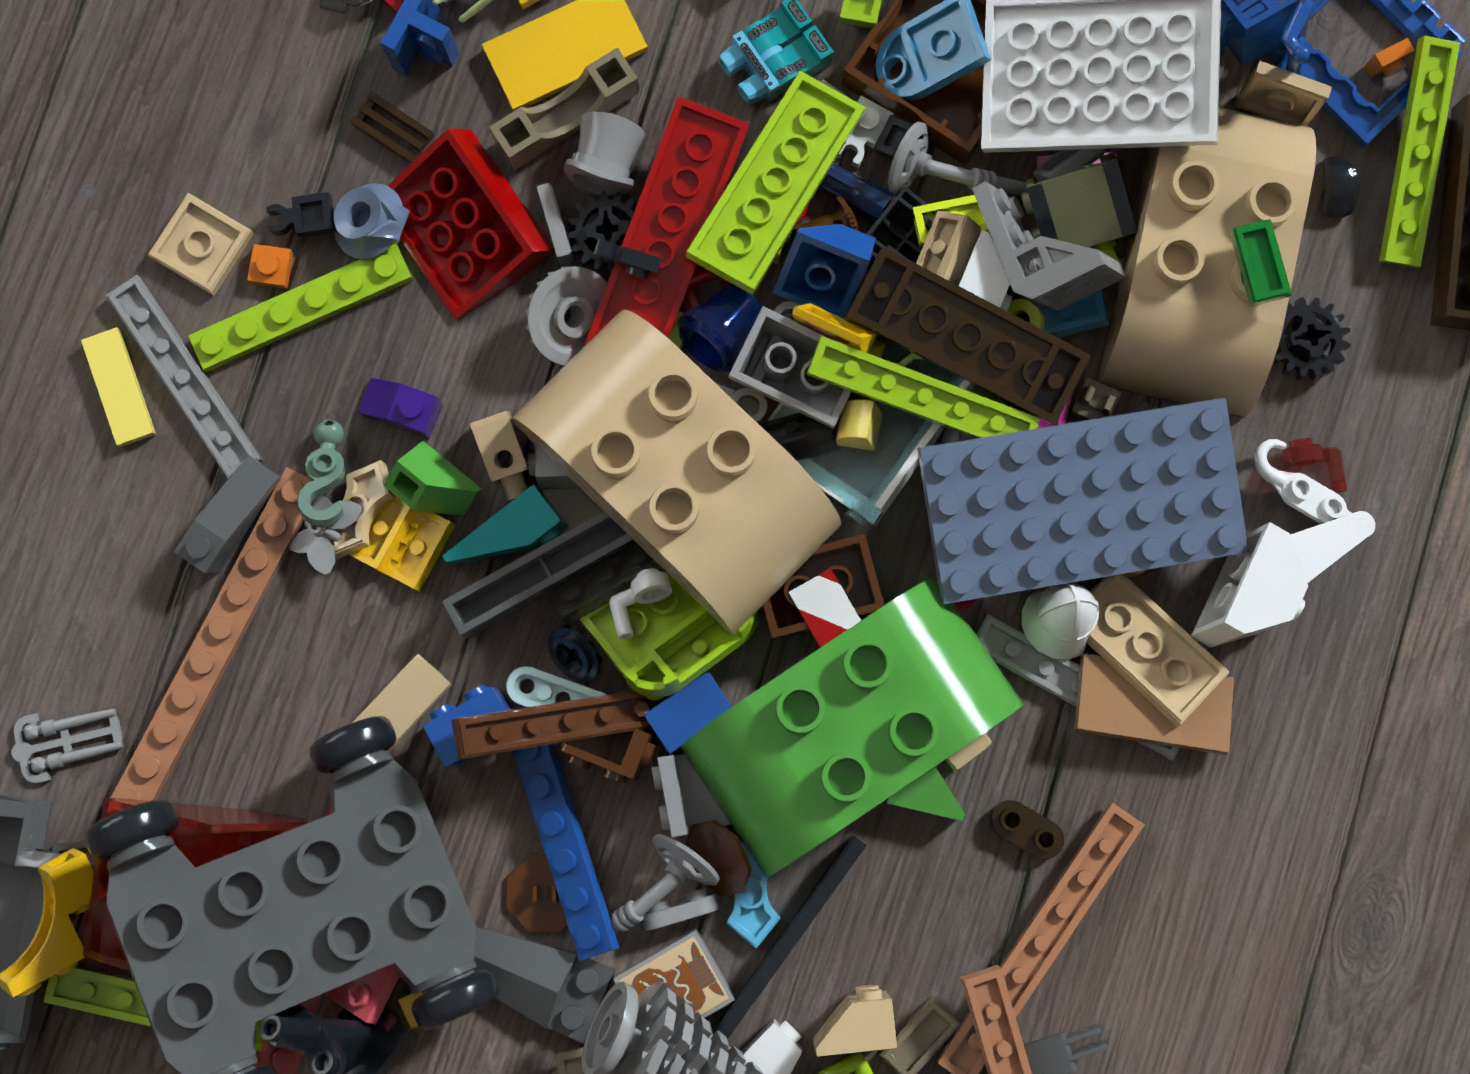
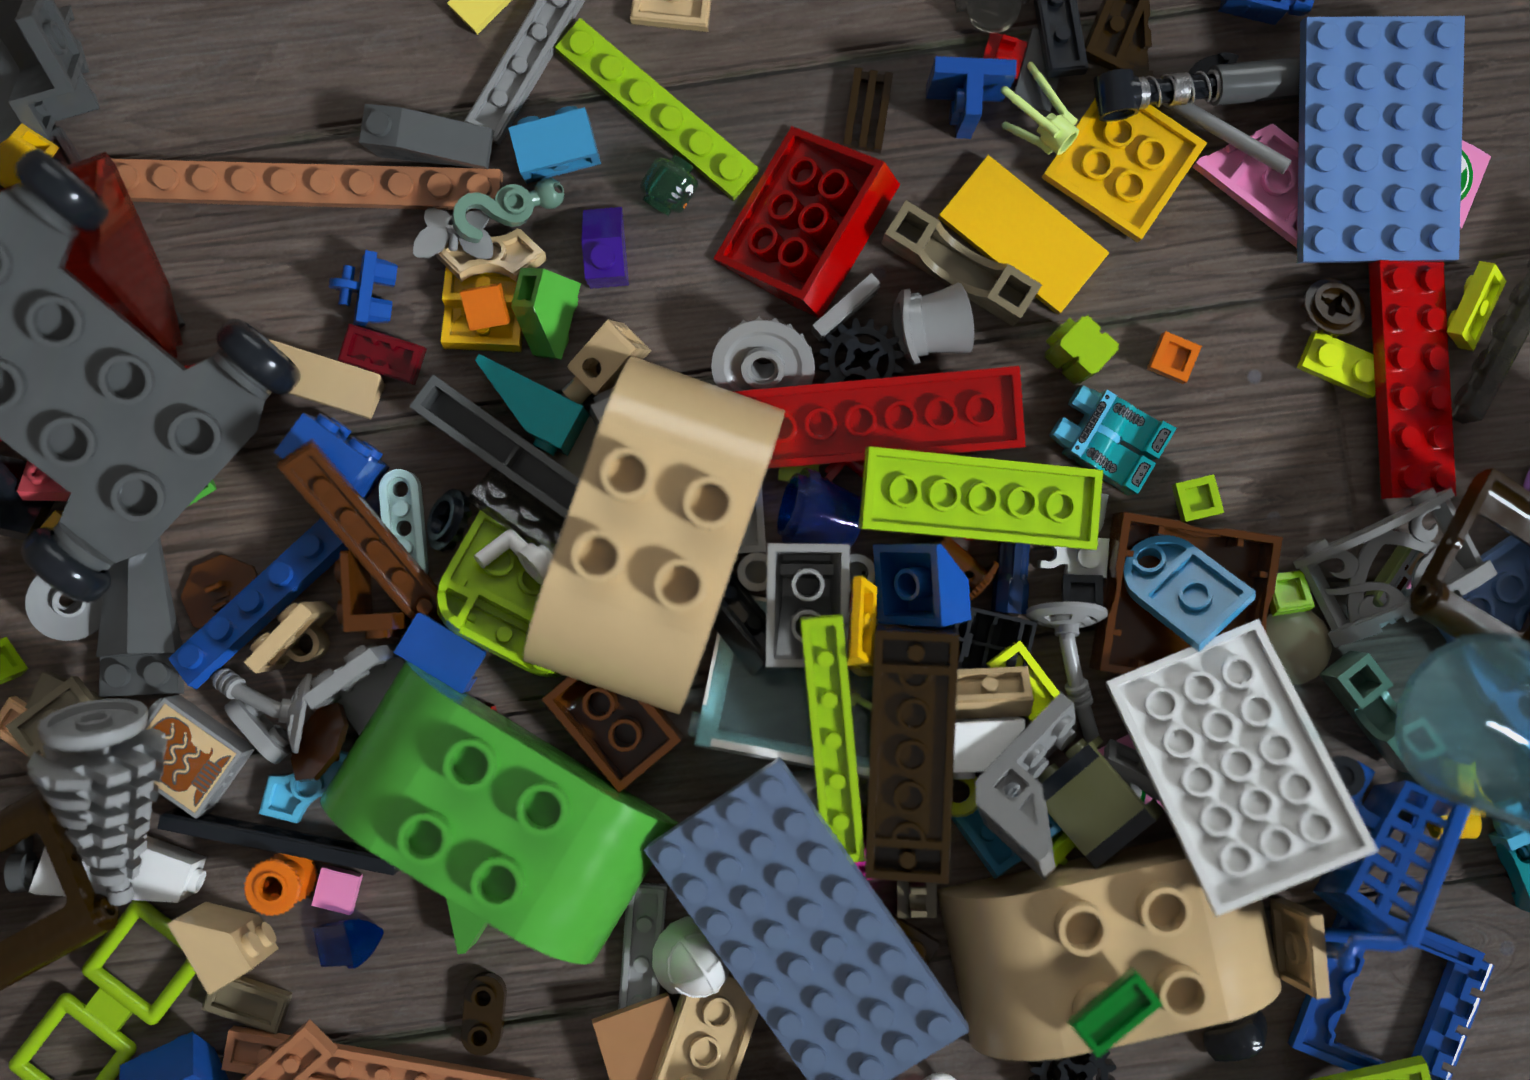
camera: 65 degrees right, 5 degrees up
(24, 751) = (133, 60): light grey piece -> none
(270, 266) = (682, 61): orange plate -> none
(288, 408) = (554, 144): none -> dark azure brick
(309, 215) = (746, 72): black plate -> none
(332, 638) = (371, 272): none -> blue hips
(369, 220) = (767, 131): sand blue piece -> none
(373, 326) = (669, 184): none -> clear green head
(399, 646) = (382, 354): none -> dark red plate
(402, 532) = (485, 306): none -> orange tile
(503, 1032) = (60, 621): none -> light grey dish
(616, 855) = (282, 645): none -> tan plate
(637, 262) = (837, 404): black plate -> none
(687, 42) = (1080, 348): none -> lime brick
(818, 965) = (280, 883): none -> orange hose
(825, 607) = (593, 736): white sticker -> none
(856, 910) = (337, 889): none -> bright pink tile
(859, 425) = (782, 688): light yellow brick -> none
(907, 921) = (346, 942): none -> clear blue tile
(1389, 60) = (1386, 1033): orange plate -> none

